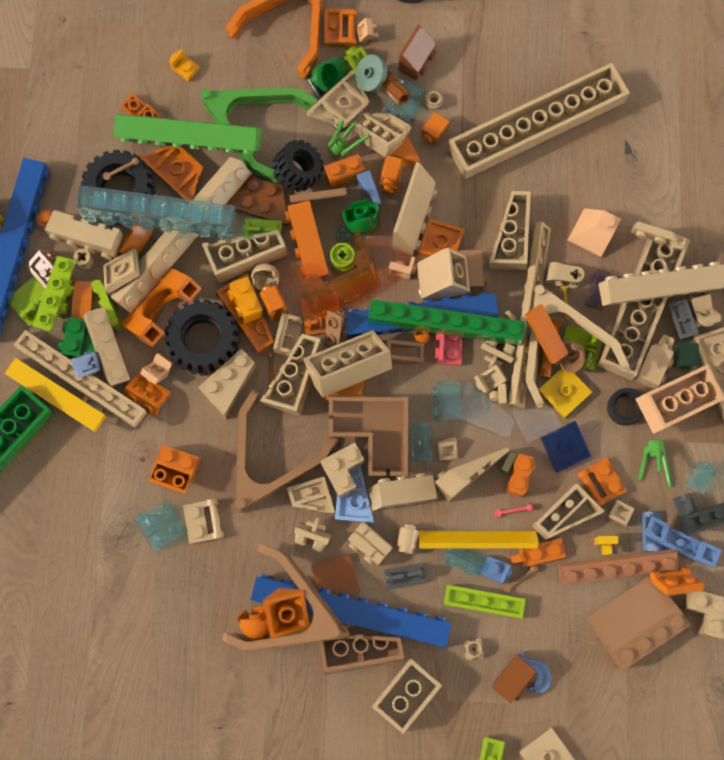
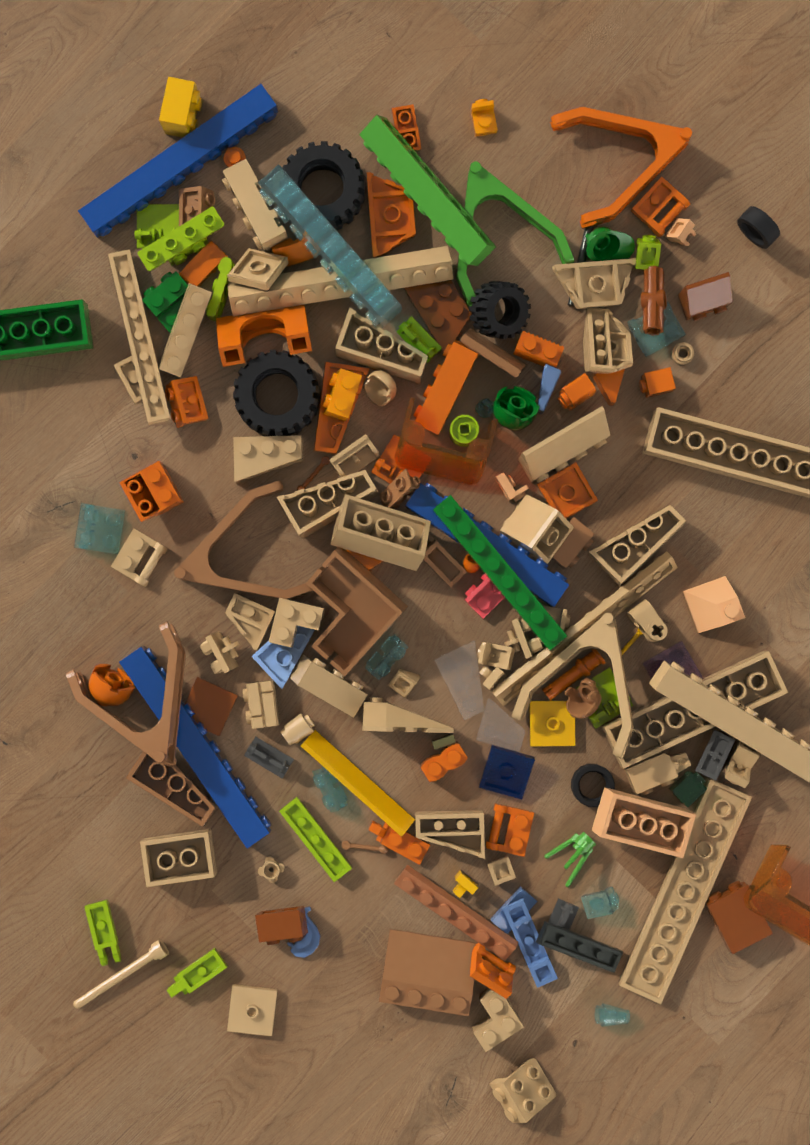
camera: 40 degrees right, 10 degrees up
(55, 395) = (106, 332): yellow tile -> none
(83, 253) = (229, 225): tan bush -> none
(86, 364) = (154, 330): medium blue bracket -> none
(107, 176) = (318, 170): medium nougat hinge -> none
(158, 369) = (213, 387): light nougat bracket -> none
(273, 302) = (366, 417): orange brick -> none
(286, 612) = (136, 700): orange slope -> none
(338, 146) = (555, 321): bright green plant -> none
(371, 73) = (645, 279): sand green plate -> none
(447, 400) = (440, 641): clear light blue bracket -> none
(496, 570) = (350, 821): medium blue bracket -> none
(530, 507) = (397, 775): coral hinge -> none
(546, 333) = (577, 662): orange tile -> none
(659, 235) = (762, 666): tan hinge -> none

